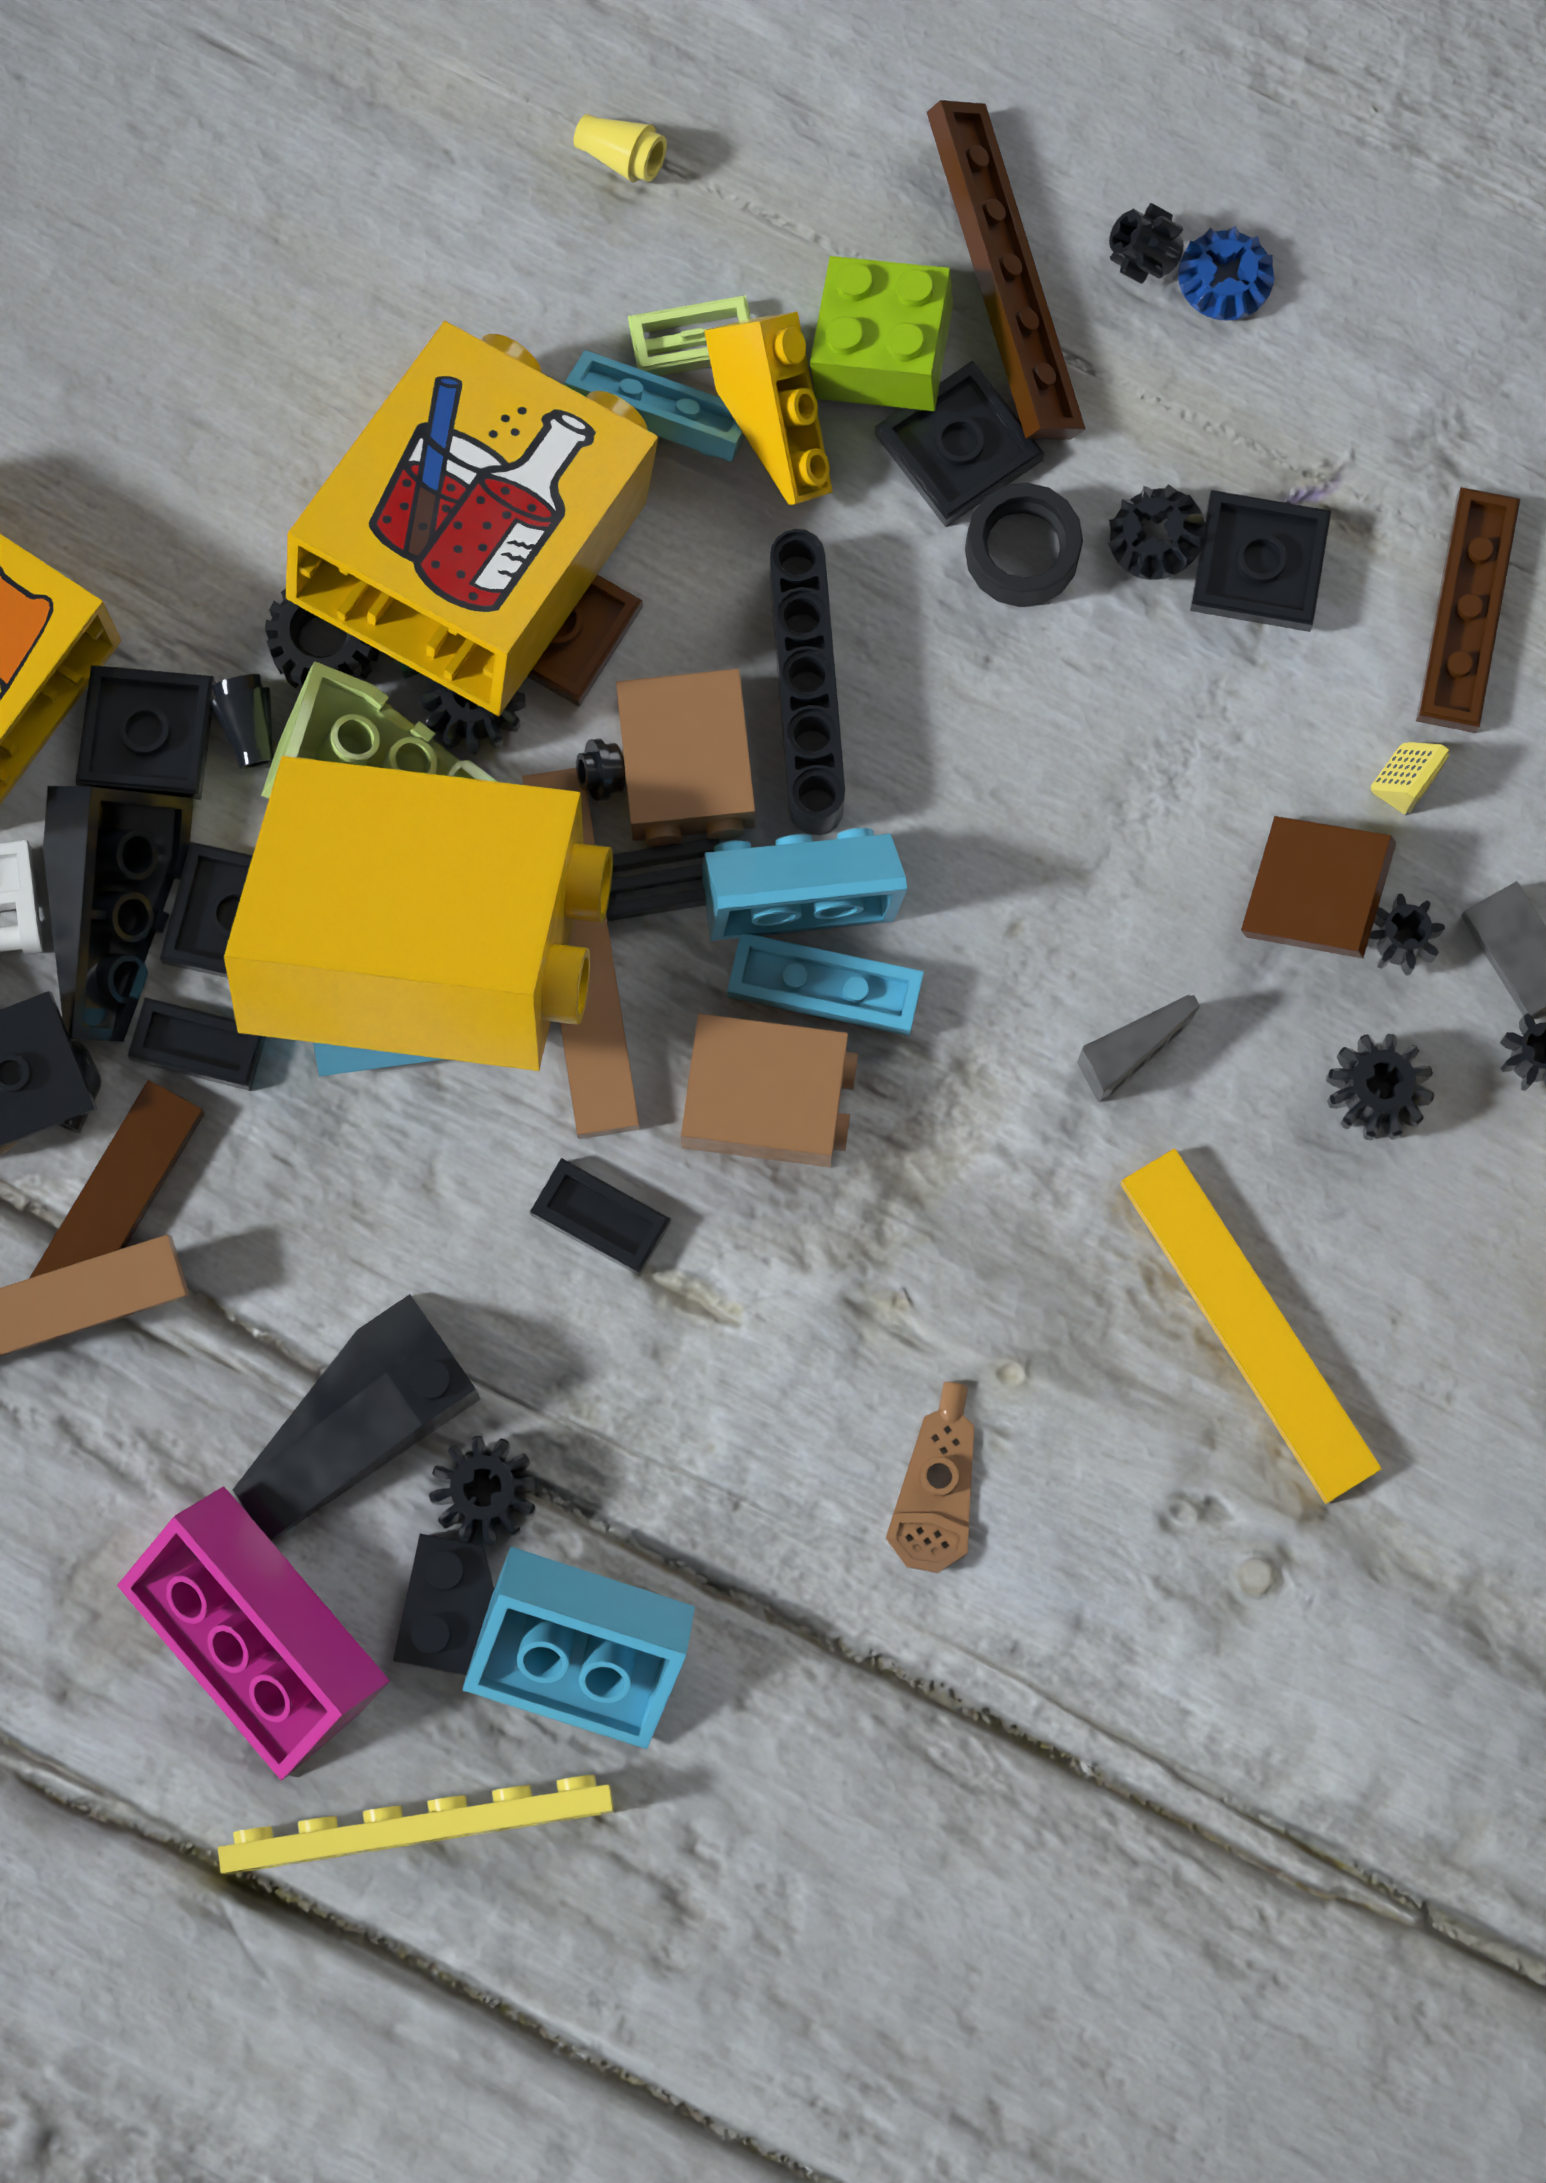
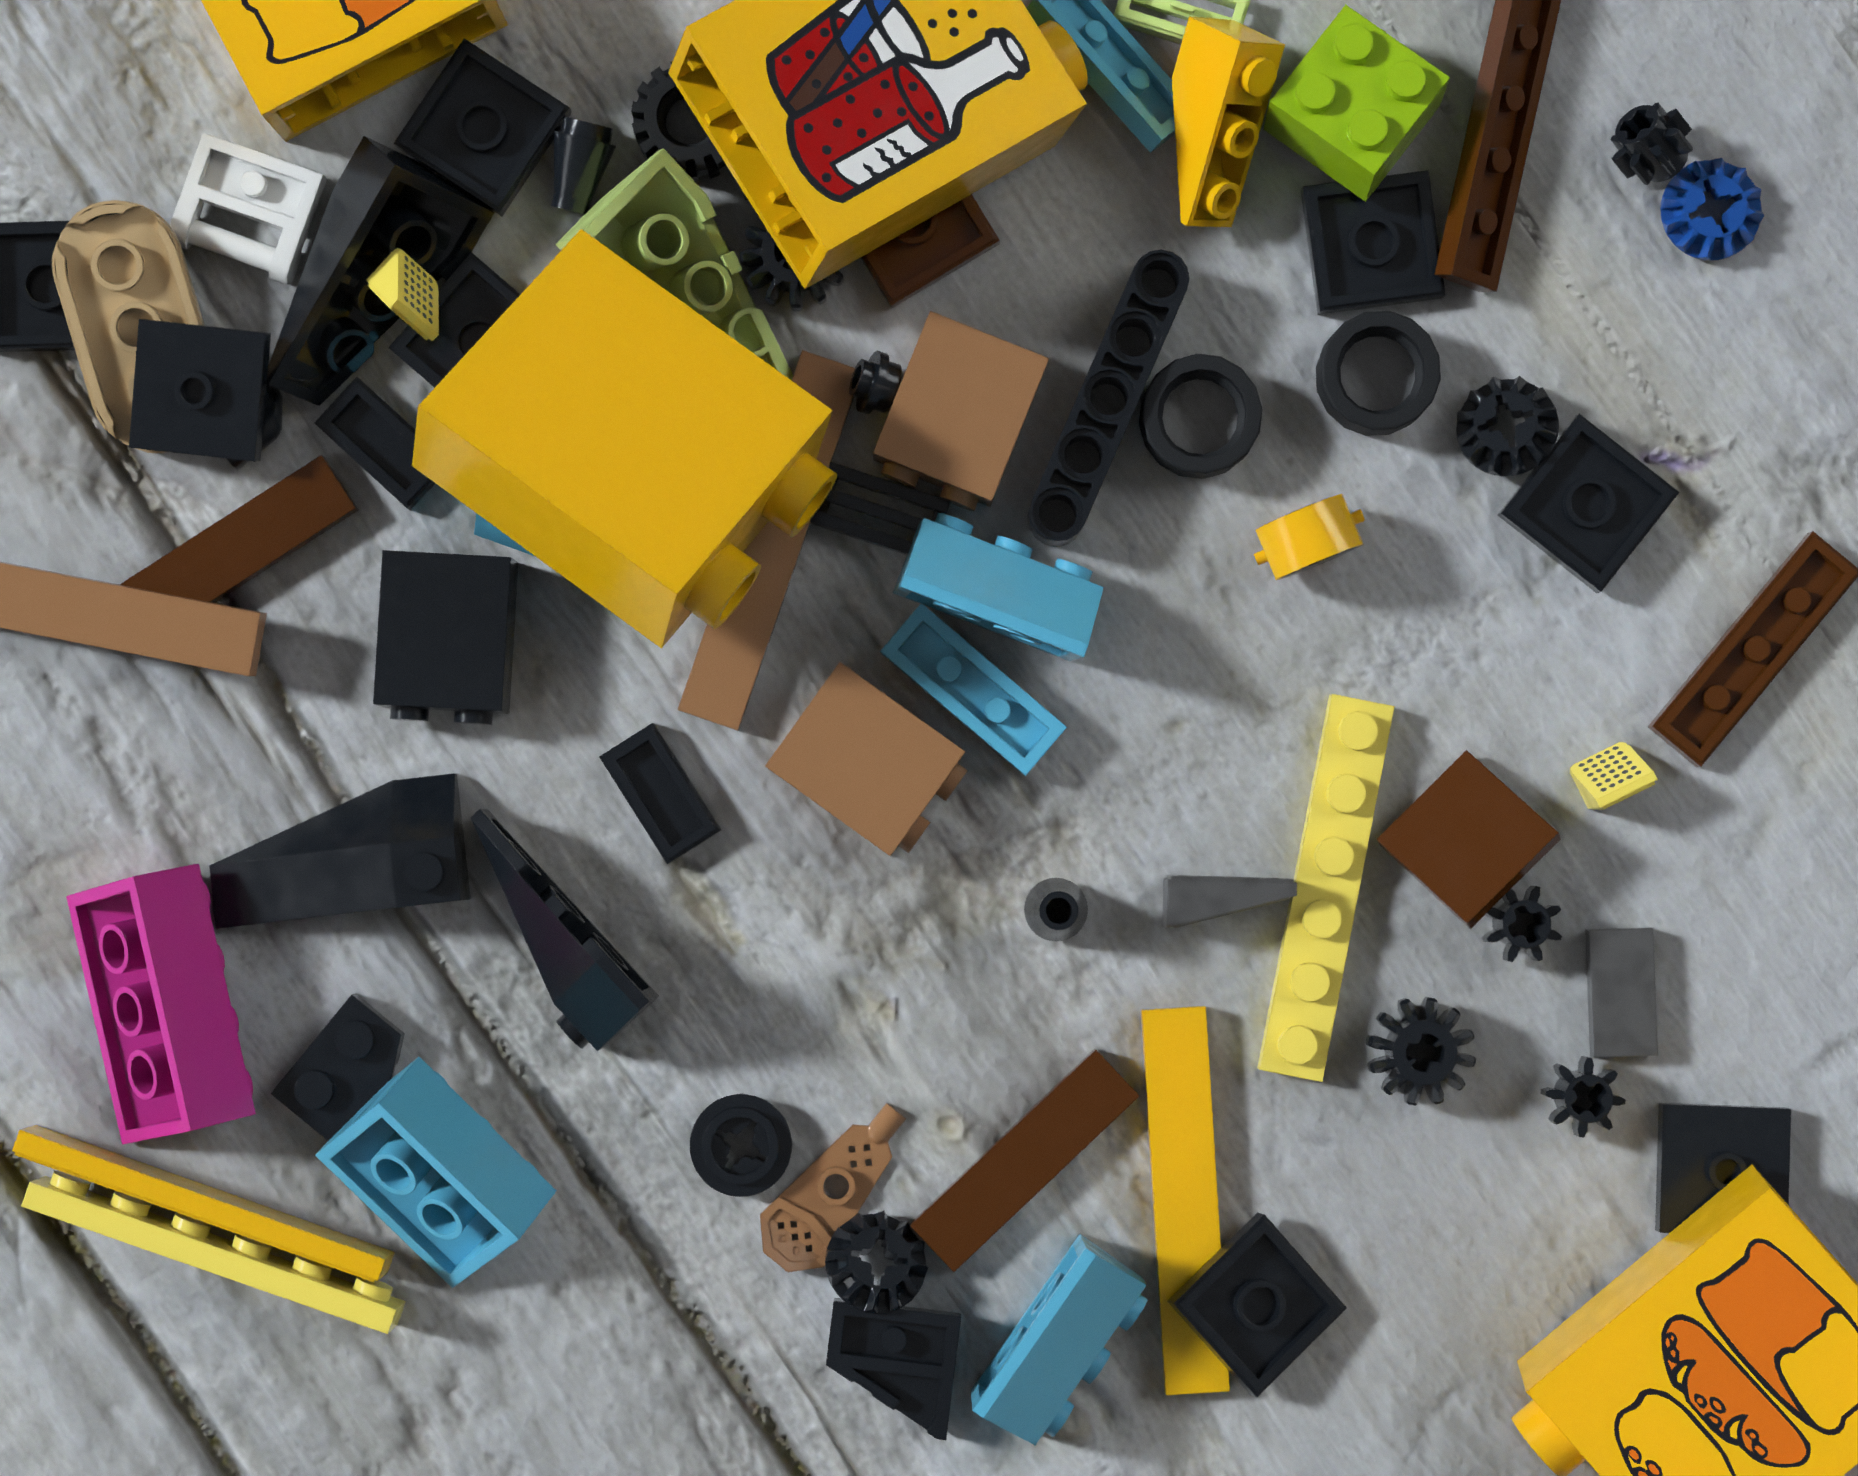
camera: 25 degrees right, 10 degrees up
(153, 900) = (408, 292): none -> light yellow slope
(339, 1175) = (445, 635): none -> black brick
(382, 1789) = (203, 1202): none -> yellow tile
(466, 1479) = (435, 1008): black gear -> none
(617, 1401) = (576, 961): none -> black wedge
(859, 1463) = (711, 1152): none -> black gear
(901, 611) = (1203, 368): none -> black tyre
(999, 1147) = (1038, 900): none -> black cone
(999, 1541) = (854, 1278): none -> black gear
(1042, 704) = (1309, 536): none -> yellow piece
(1076, 1595) = (899, 1358): none -> black wing
(1091, 1365) = (1024, 1160): none -> reddish brown tile
(1210, 1499) = (1058, 1342): none -> medium azure slope
(1229, 1012) = (1327, 887): none -> light yellow plate
(1363, 1379) = (1257, 1304): none -> black tile

